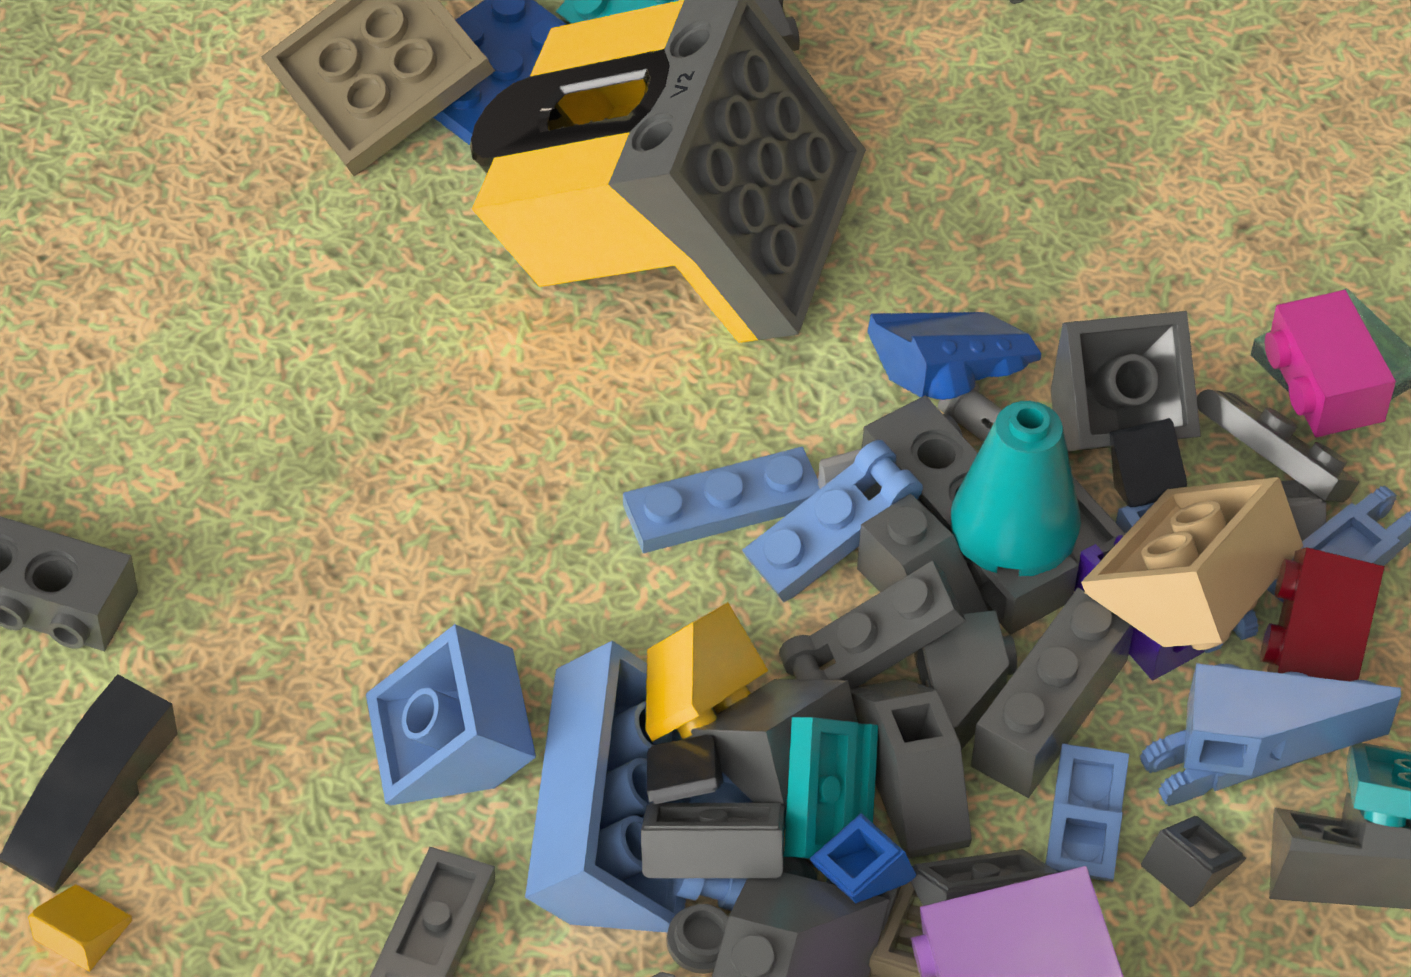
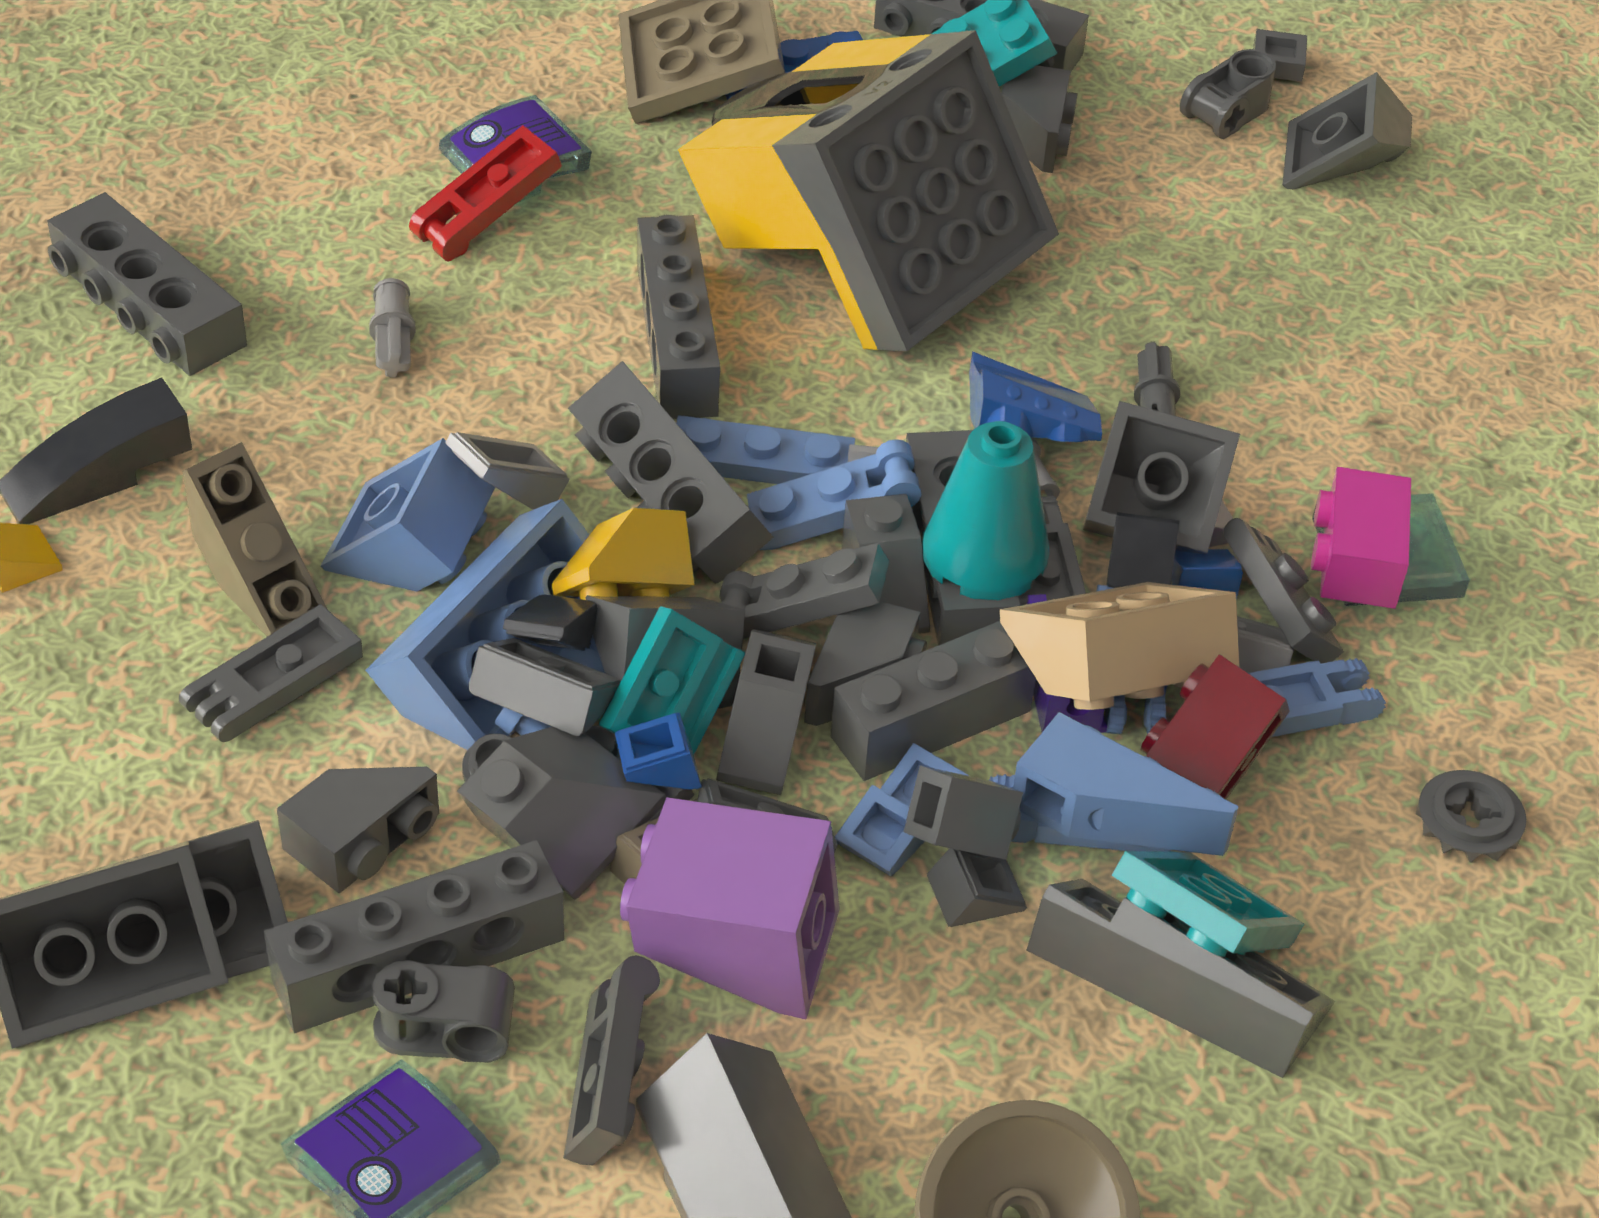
camera: 25 degrees right, 5 degrees down
(262, 259) = (485, 131): none -> slope
(277, 322) = (484, 193): none -> red plate
(278, 511) = (392, 326): none -> light grey axle
(330, 820) = (247, 541): none -> dark tan slope
(523, 622) = (511, 467): none -> light grey slope
(557, 386) = (678, 316): none -> dark grey brick
(583, 507) = (667, 471): none -> dark grey brick
(1040, 279) = (1156, 384): none -> dark grey axle
(1163, 797) = (963, 812): none -> dark grey brick
(1207, 454) = (1209, 571): none -> blue slope

